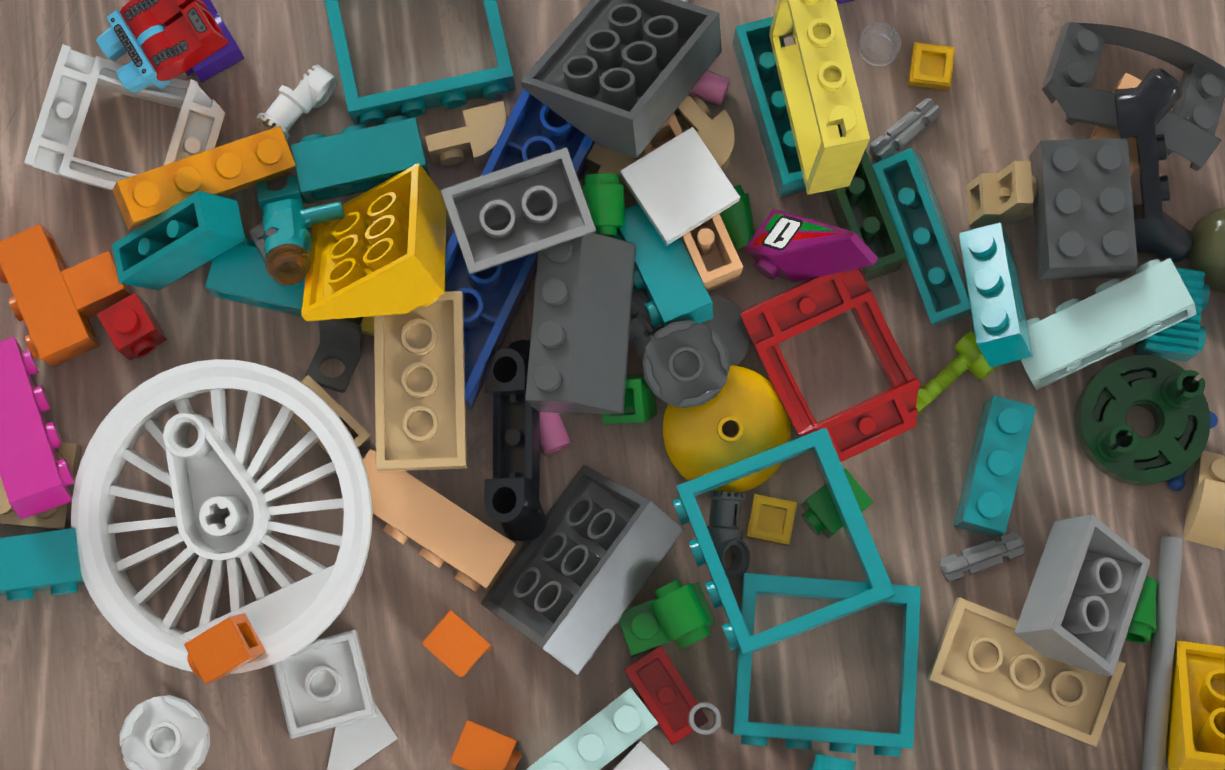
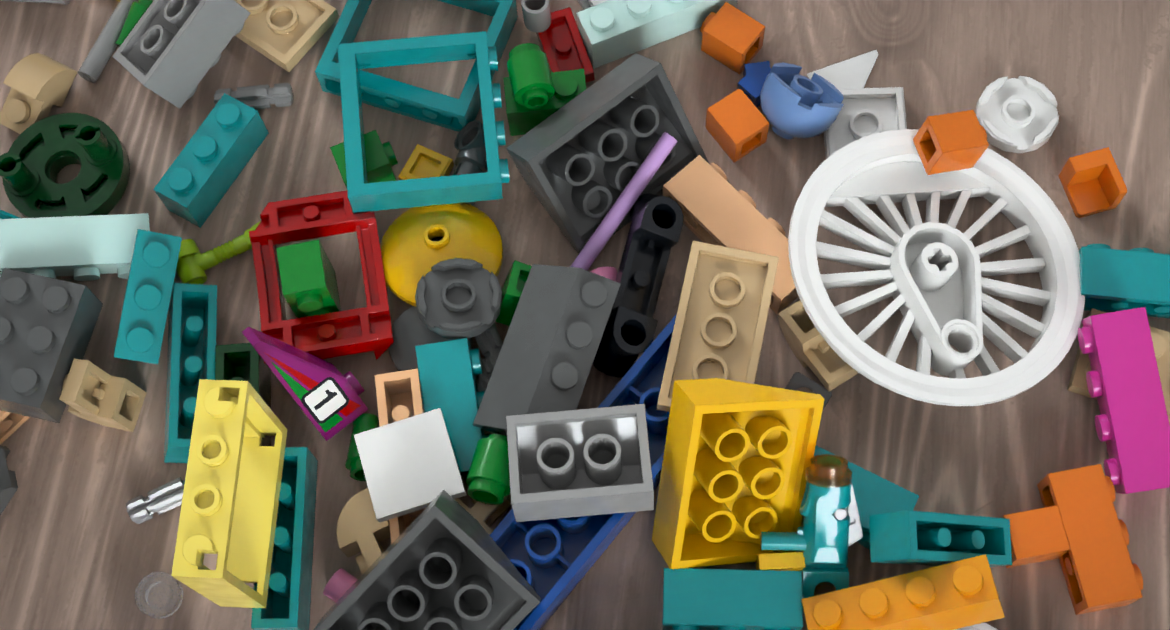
camera: 160 degrees left, 10 degrees down
(76, 669) = (1092, 182): none -> orange panel
(132, 327) = (1000, 480): red brick -> none
(322, 197) = (781, 561): none -> yellow tile
(393, 682) = (798, 104): none -> medium blue cylinder
(447, 704) = (753, 79): none -> blue piece
(477, 138) = (596, 594): tan brick -> none
(552, 520) = (625, 202): none -> lavender piece
(841, 349) = (308, 279): none -> green brick
(931, 66) = (116, 558): yellow tile -> none

